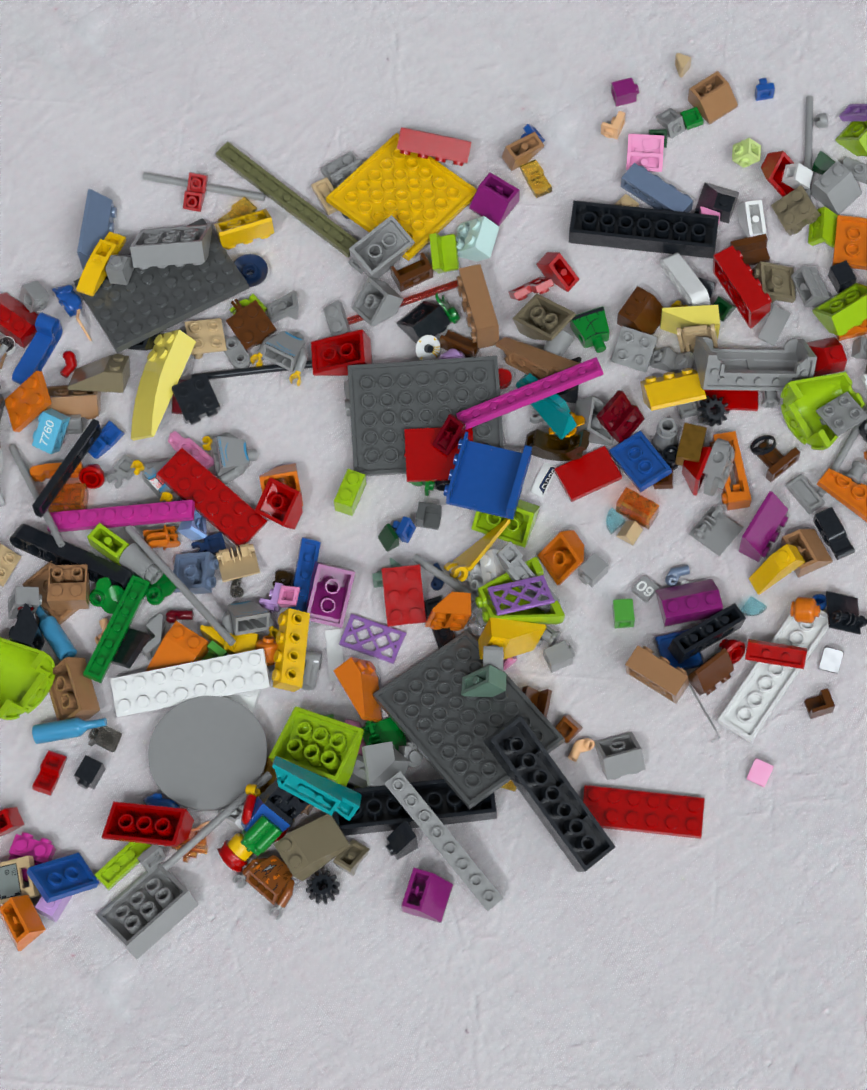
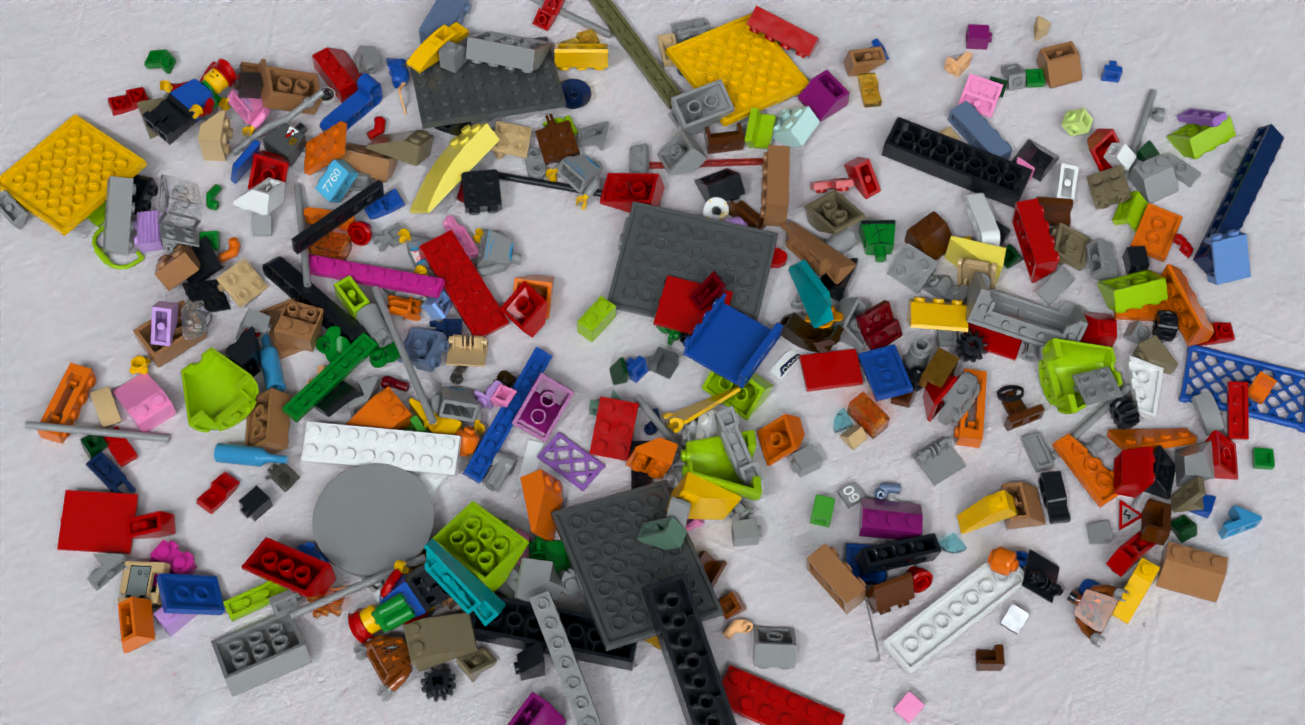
camera: 10 degrees right, 5 degrees down
(291, 650) = (487, 446): yellow brick -> none
(451, 312) = (749, 185): green plate -> none
(526, 583) = (735, 452): medium lavender window -> none
(530, 393) = (798, 276): dark pink plate -> none
(764, 528) = (986, 470): magenta slope -> none
(776, 654) = (961, 595): red plate -> none

